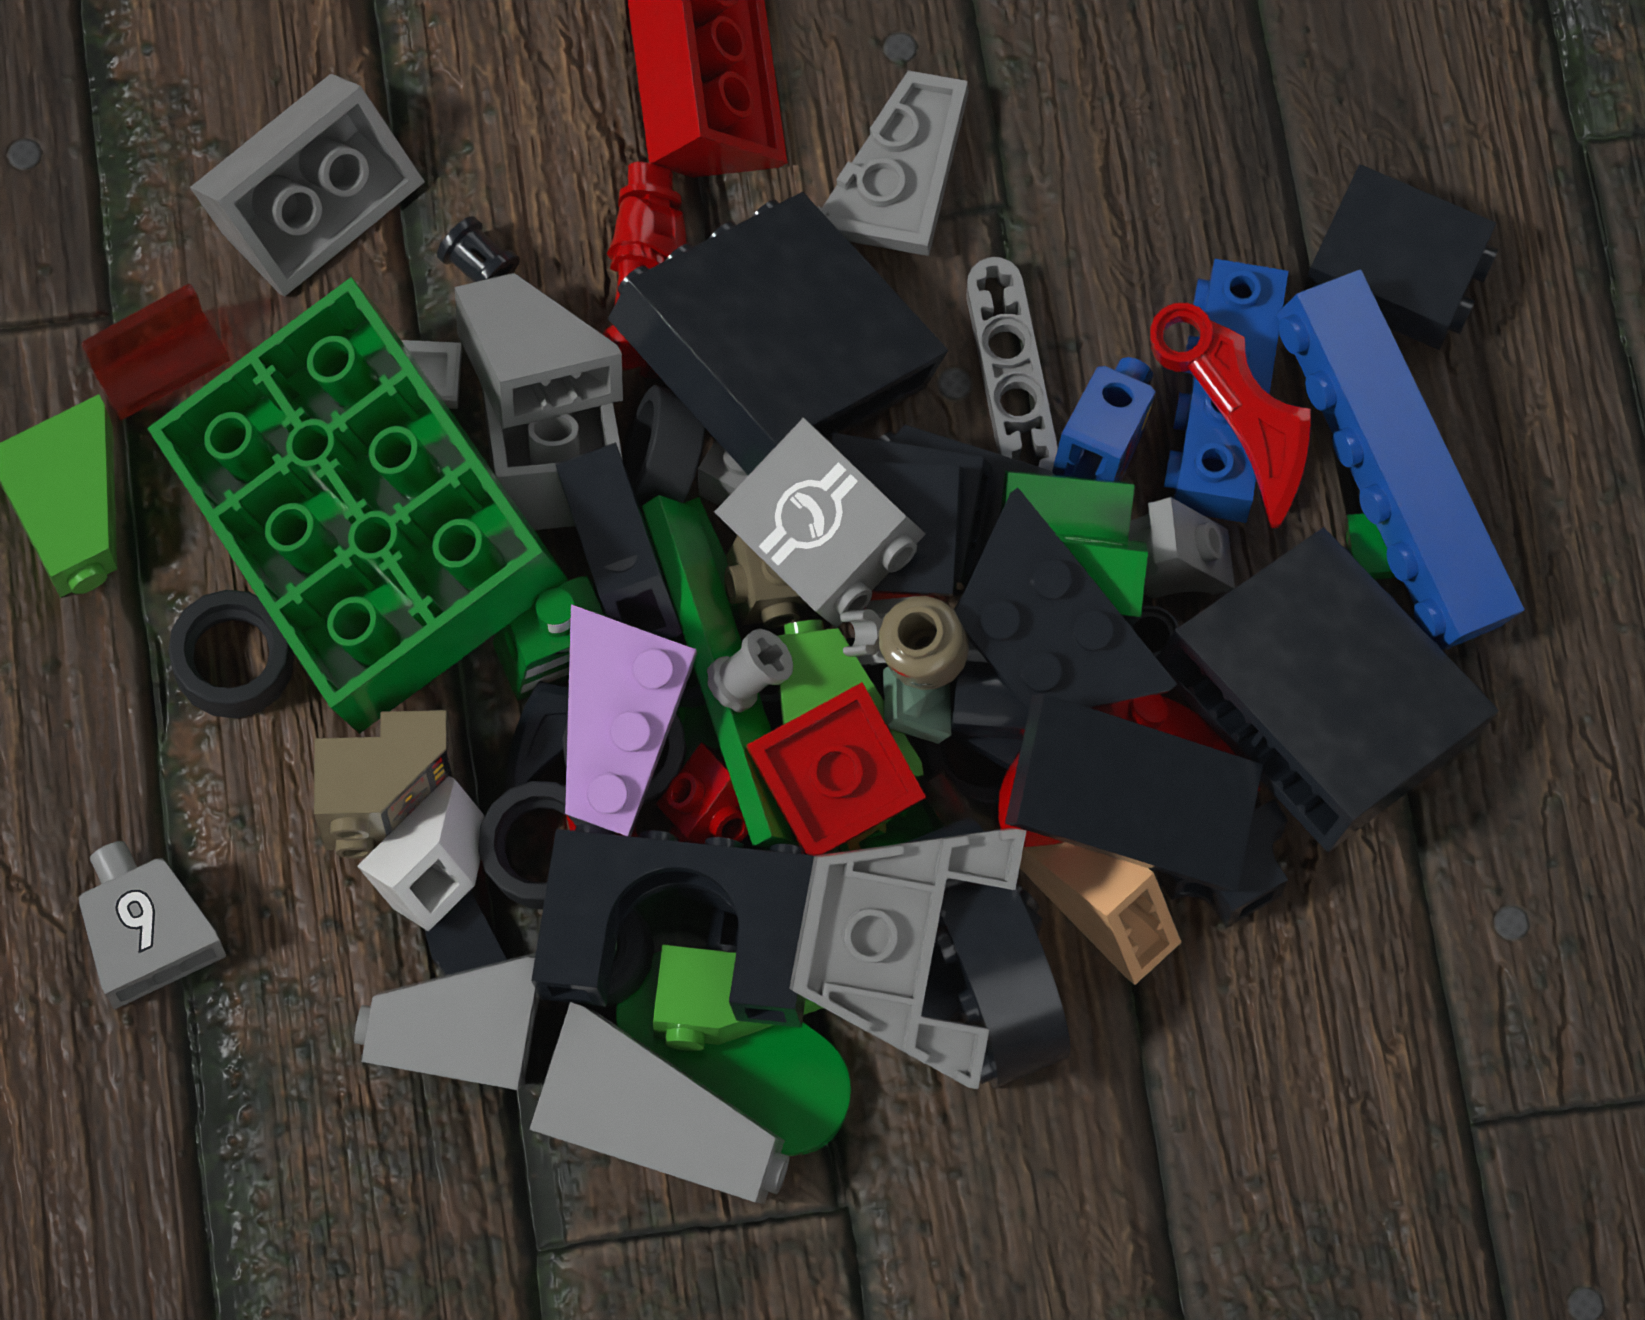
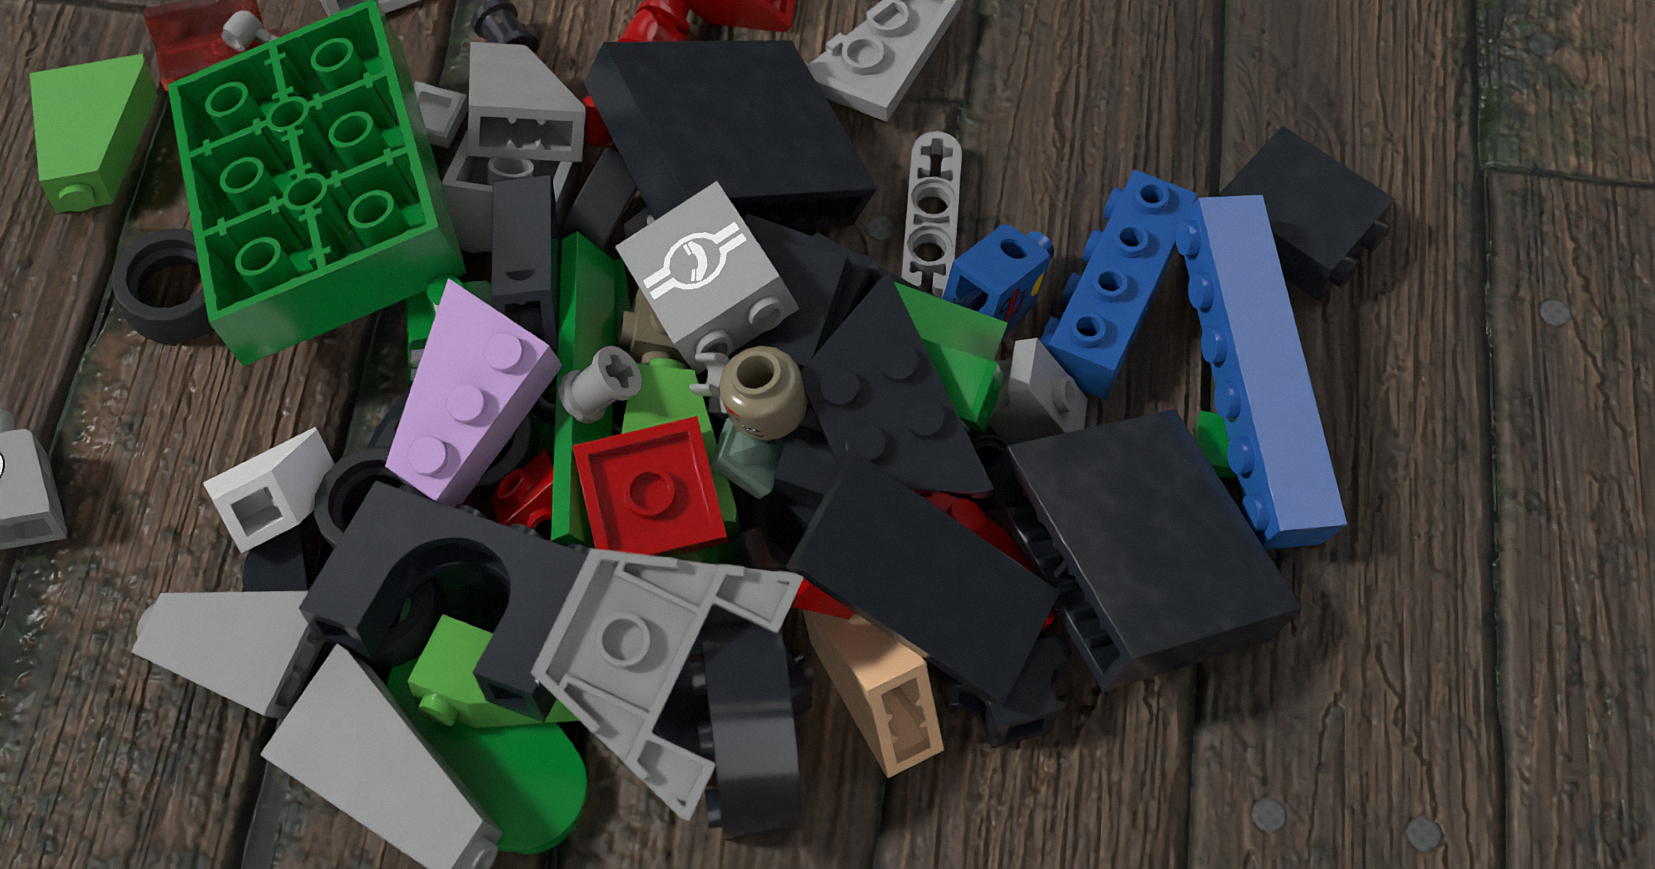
camera: 15 degrees right, 10 degrees down
(195, 328) = (243, 30): none -> light grey hand
(376, 782) = (239, 409): dark tan piece -> none
(1268, 429) = (1144, 311): red piece -> none

